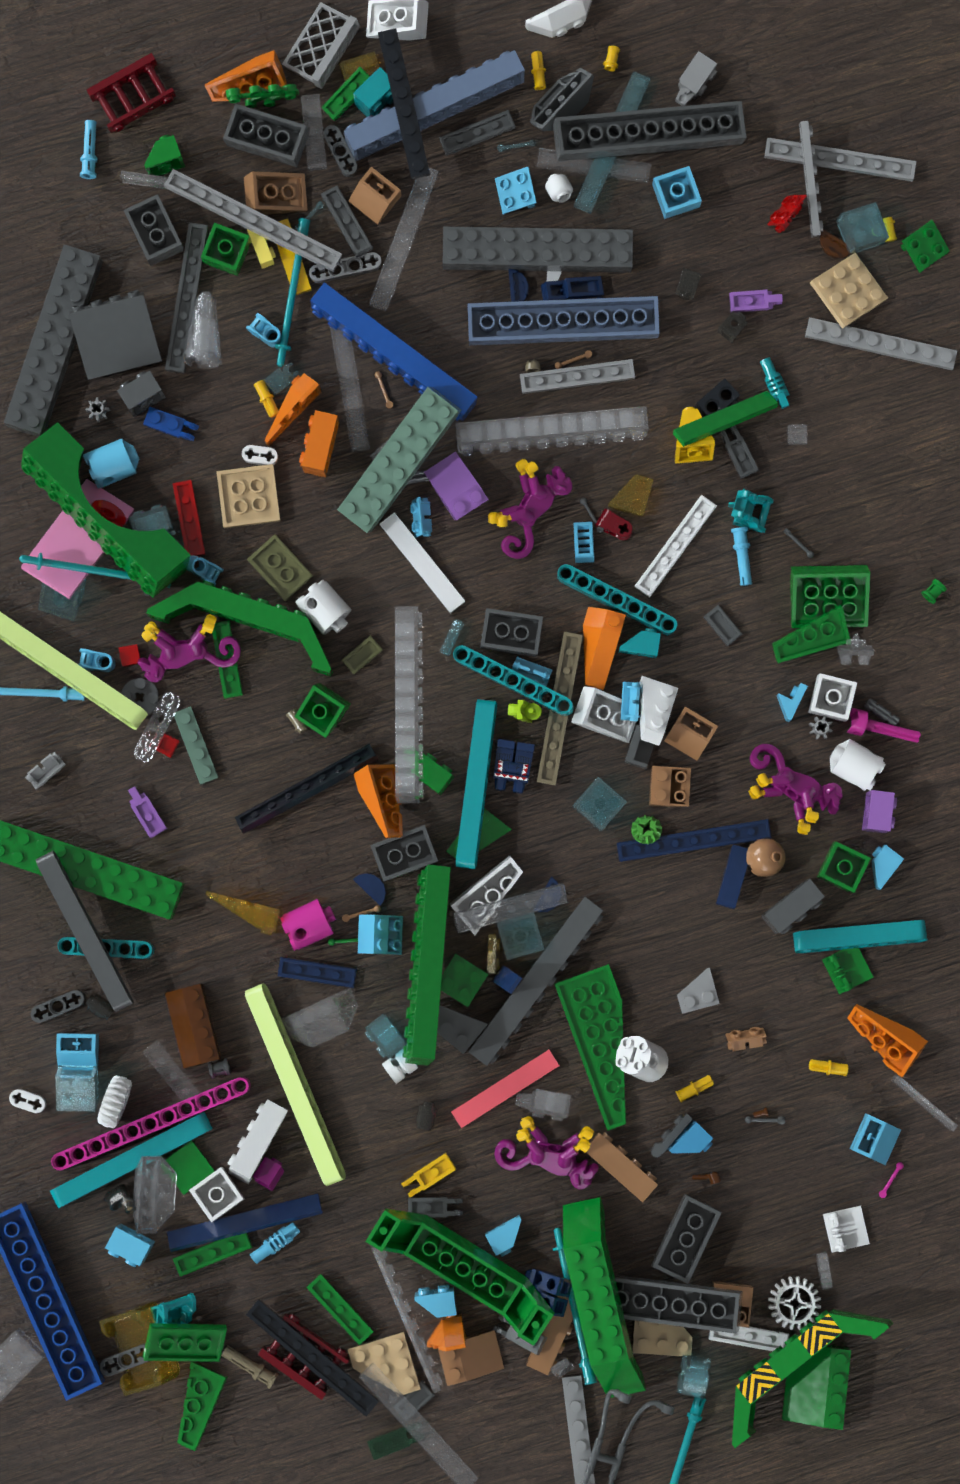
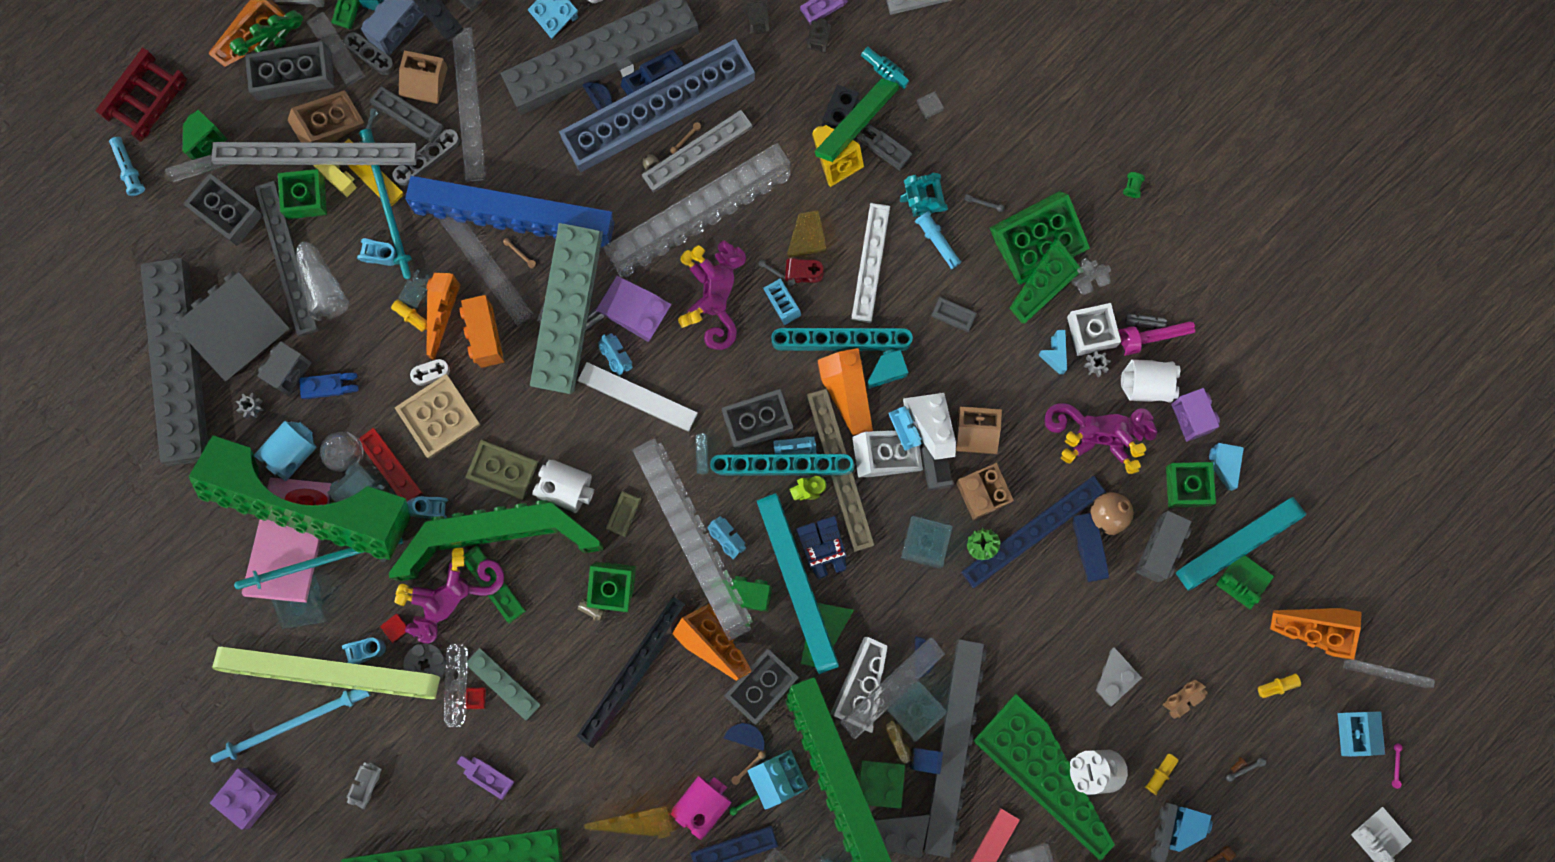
camera: 25 degrees left, 5 degrees down
(155, 486) = (341, 451): none -> clear cylinder
(435, 708) = (720, 530): none -> medium azure hinge

